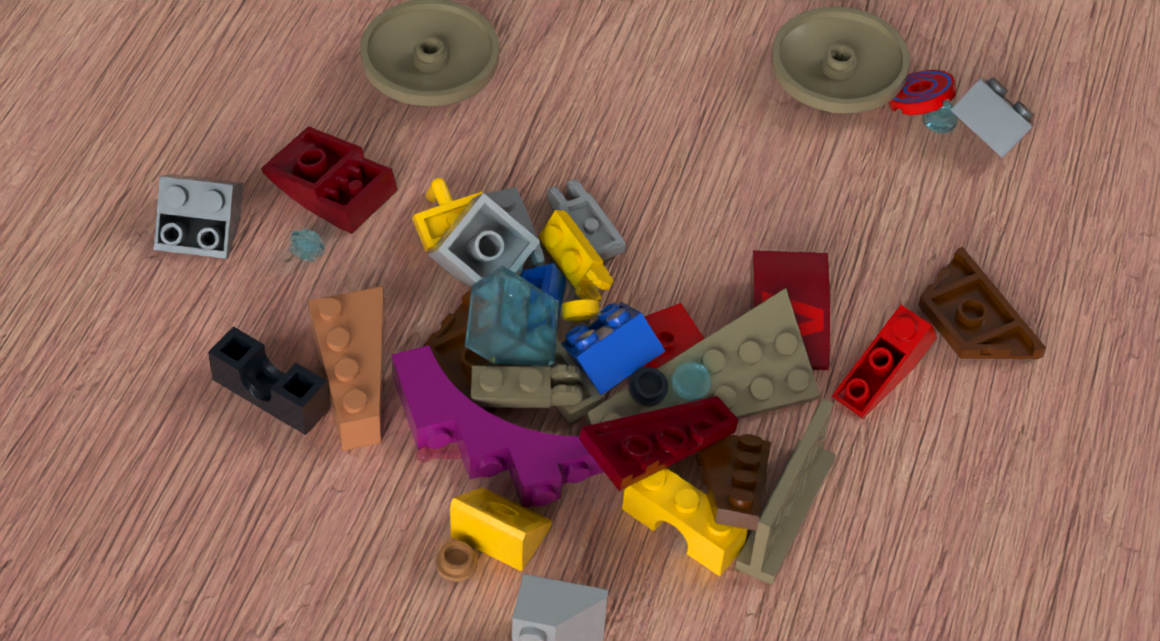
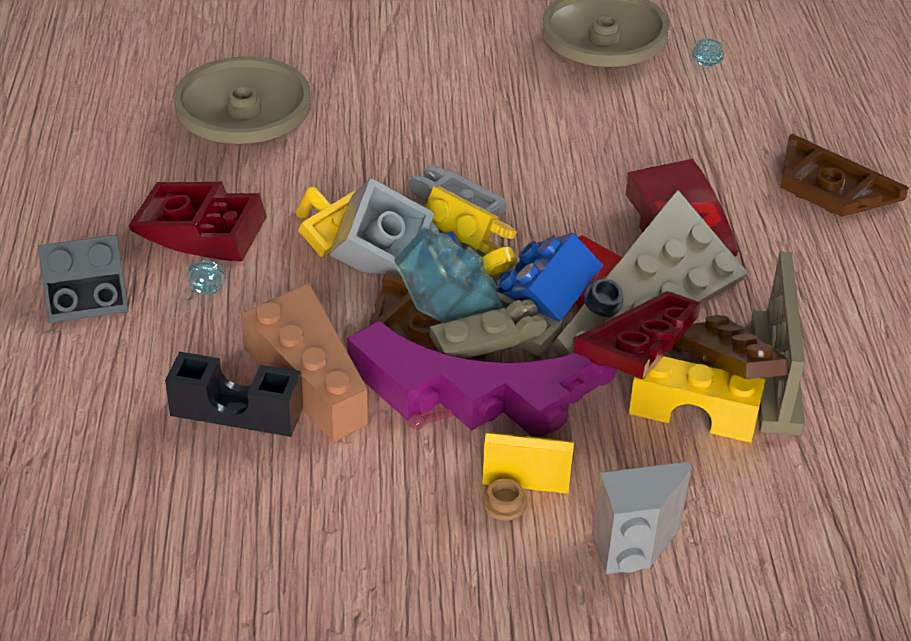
camera: 20 degrees left, 10 degrees down
(691, 381) = (639, 283): clear light blue plate -> none
(886, 362) = (787, 224): red slope -> none
(924, 92) = (688, 35): red tile -> none
(993, 115) = (757, 35): slope -> none

